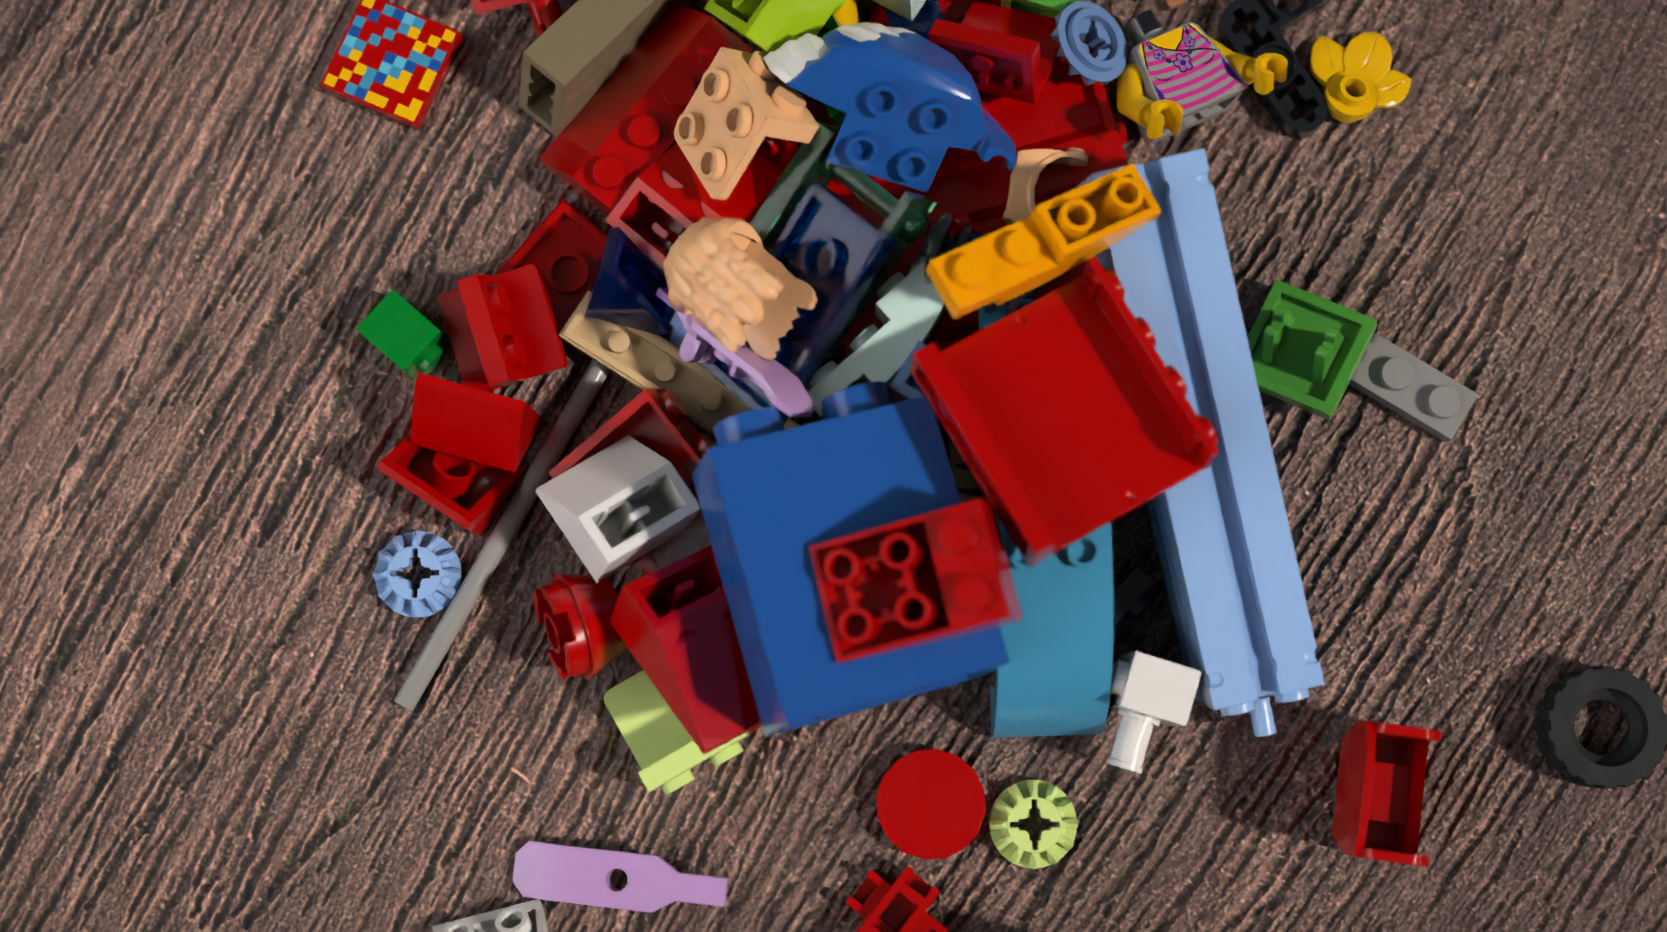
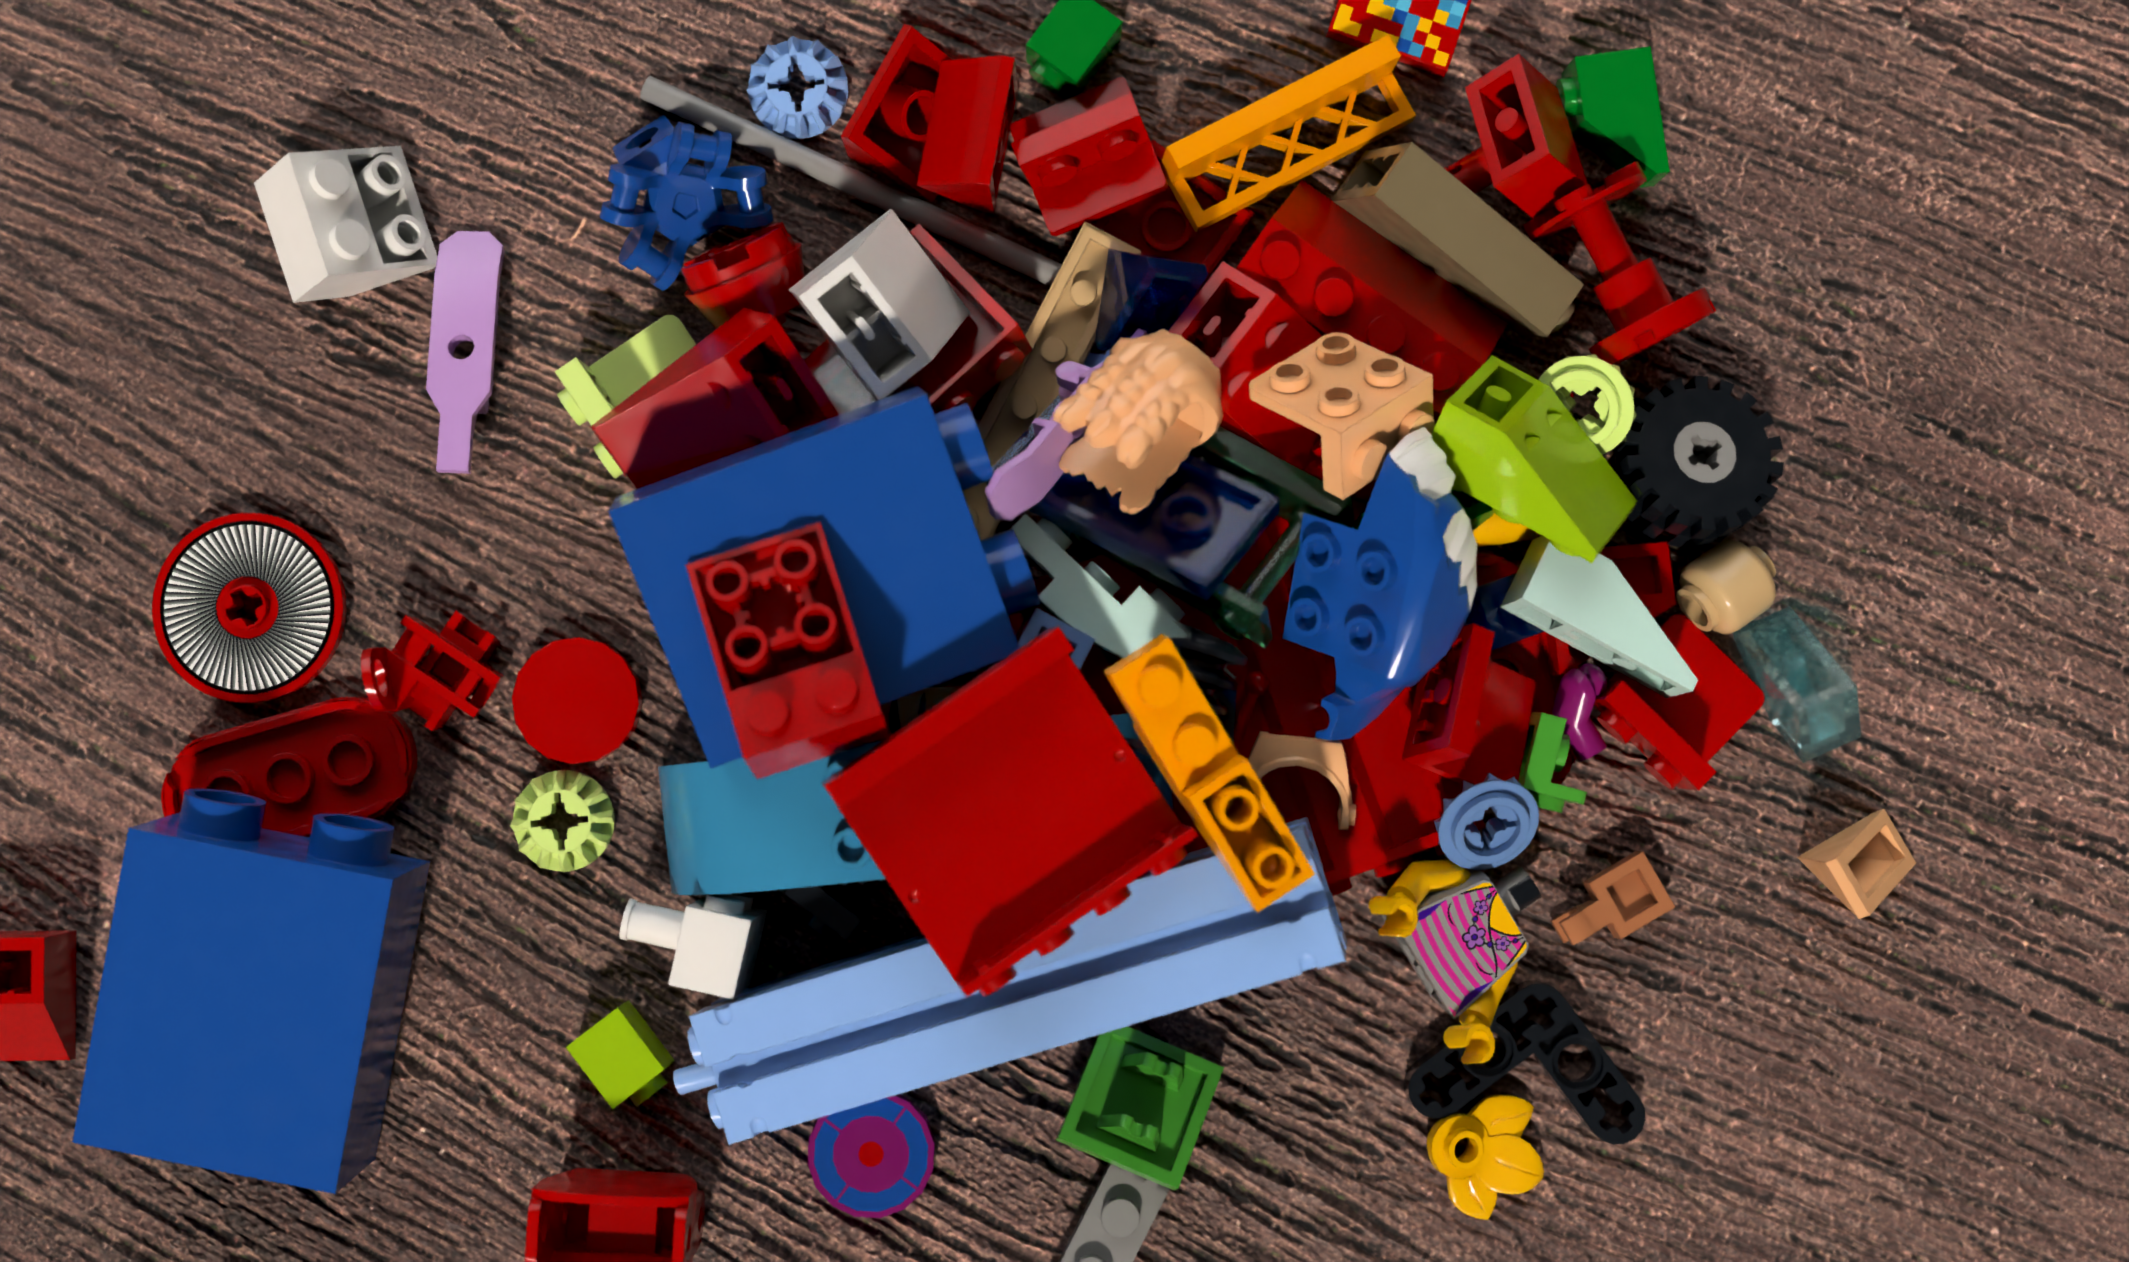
camera: 80 degrees right, 5 degrees up
(483, 172) = (1277, 113): none -> light orange fence
(503, 683) = (679, 197): none -> blue piece
(1240, 784) = (622, 1056): none -> lime brick
(1340, 577) = (872, 1157): none -> tile

